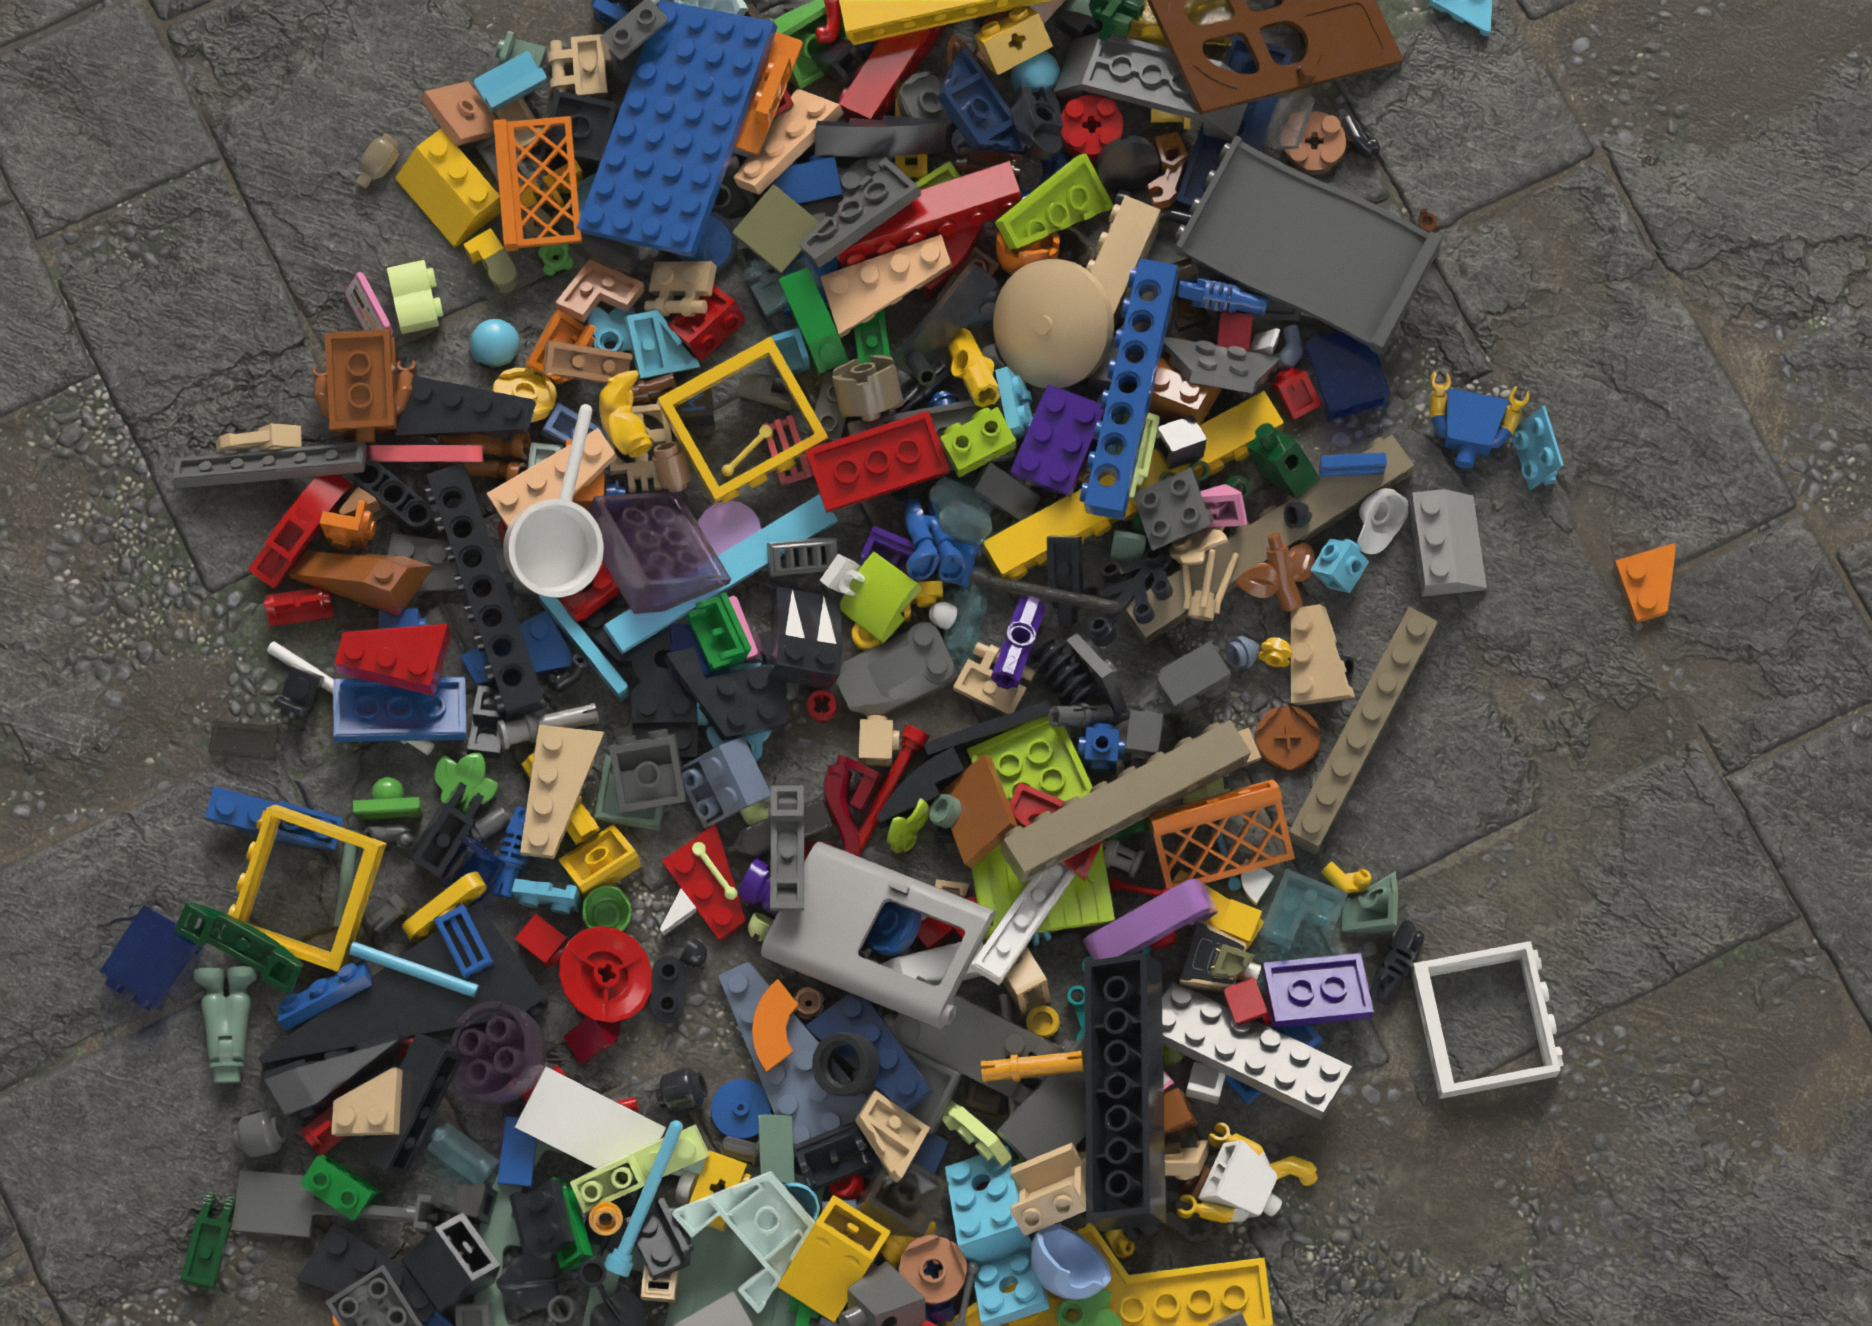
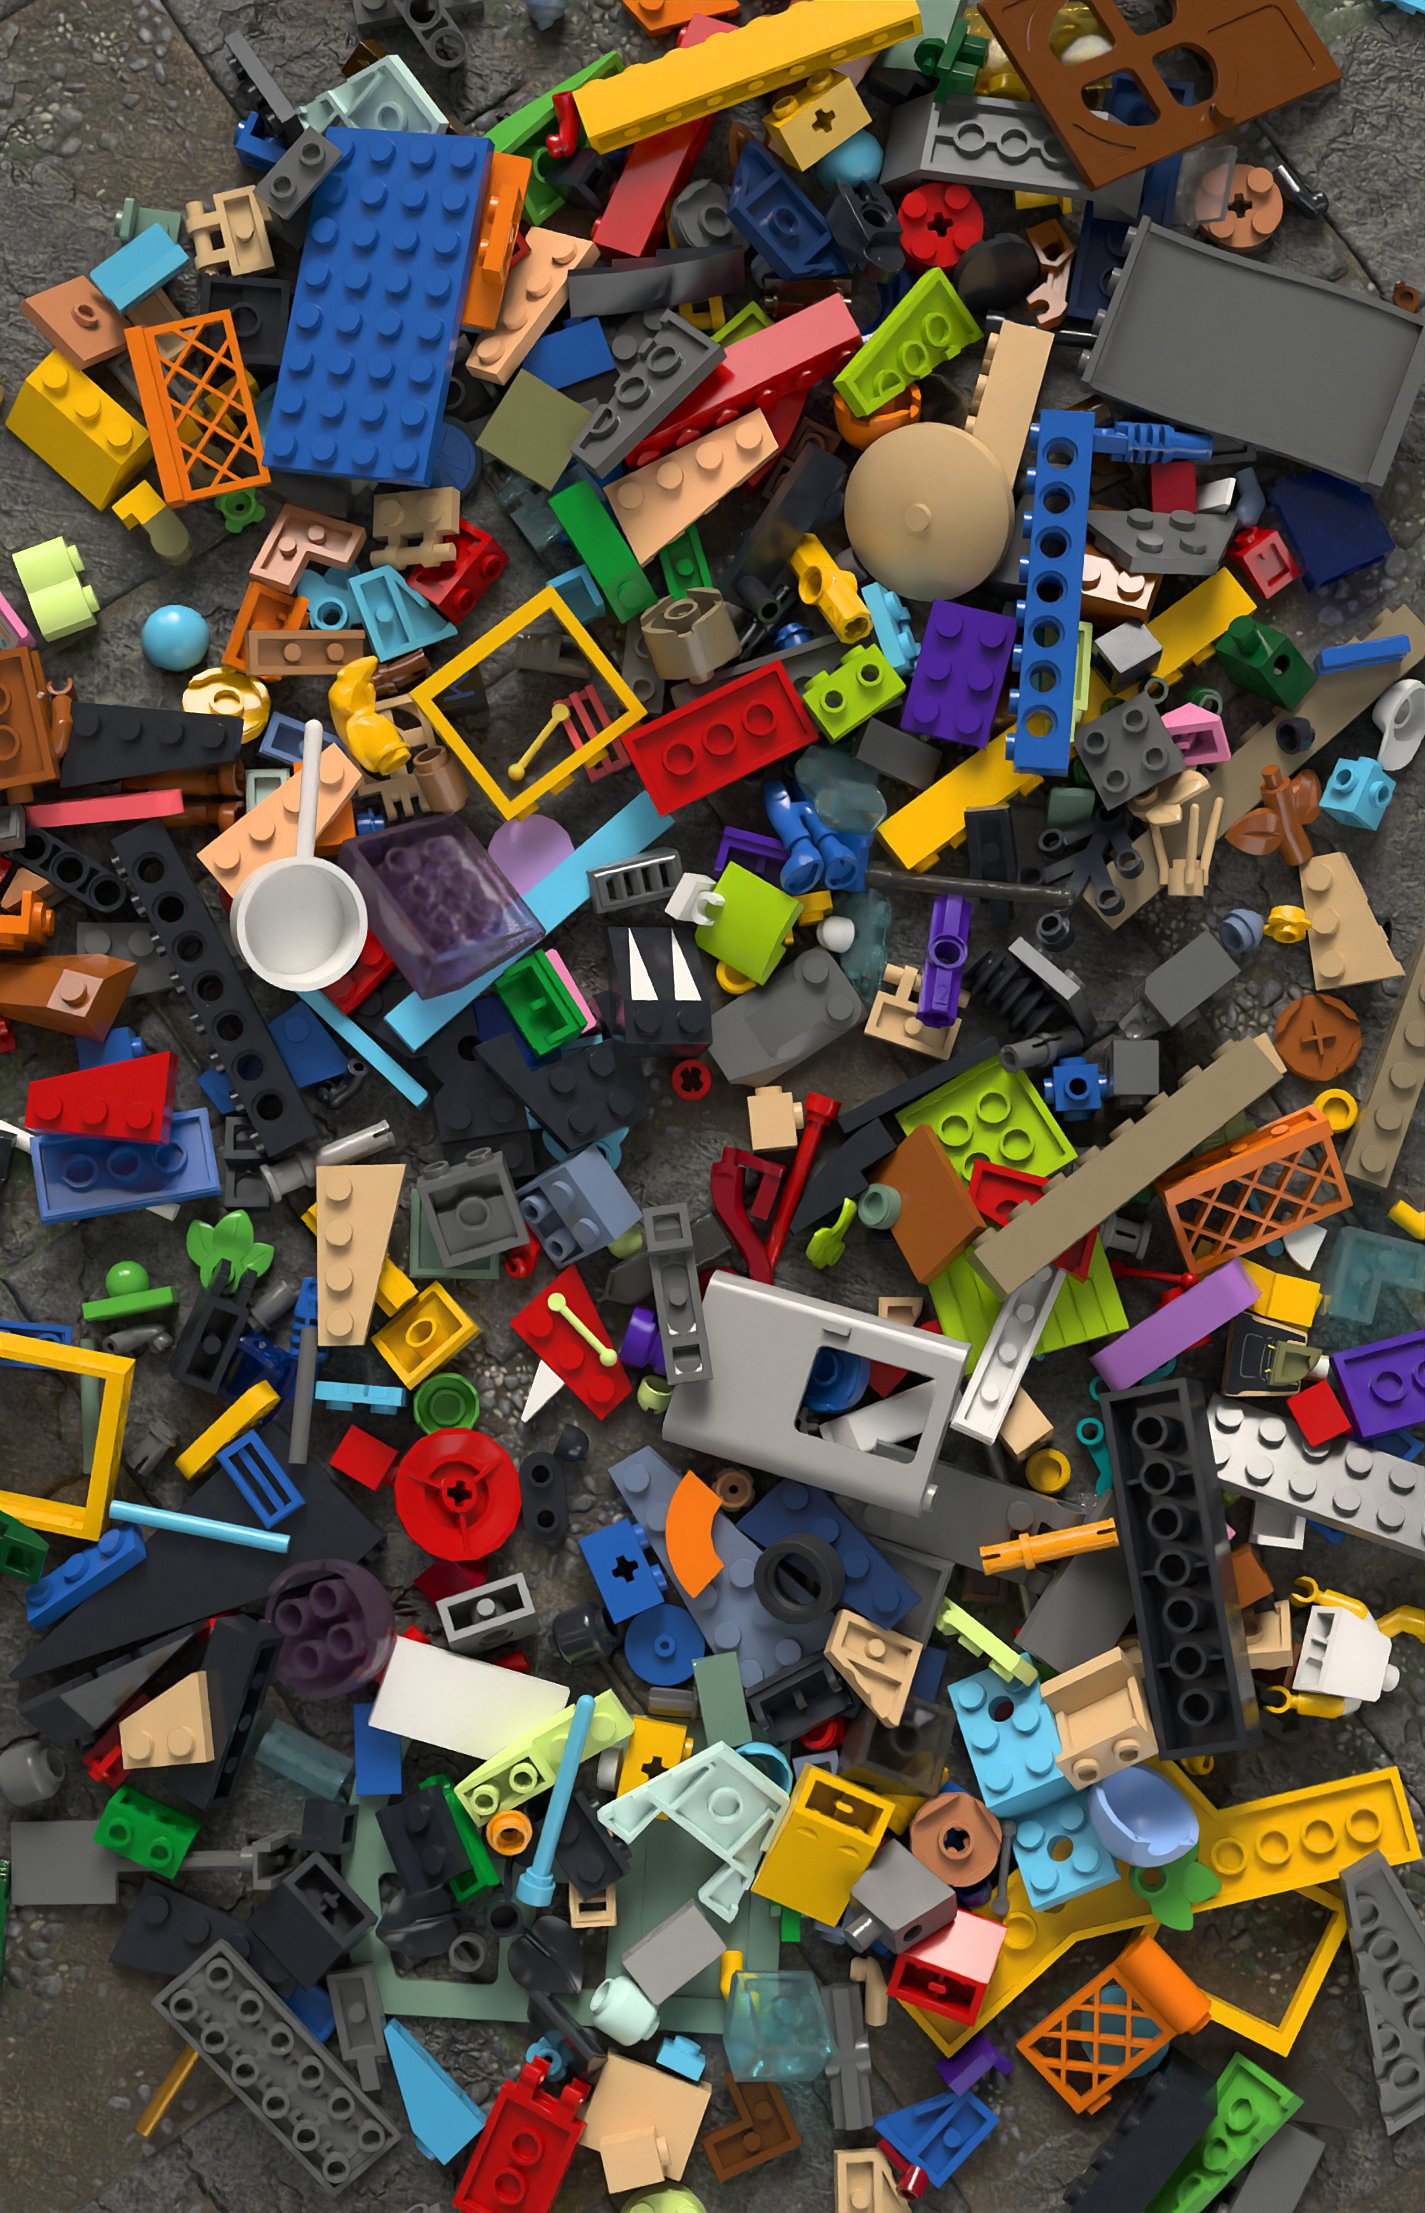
camera: 10 degrees left, 10 degrees up
(504, 887) = (303, 1396): none -> dark grey bar
(615, 1065) = (488, 1616): none -> dark grey brick
(680, 814) = (524, 1257): none -> red arm
(708, 1030) = (602, 1553): none -> blue brick
(1293, 792) = (1338, 1108): none -> yellow tile

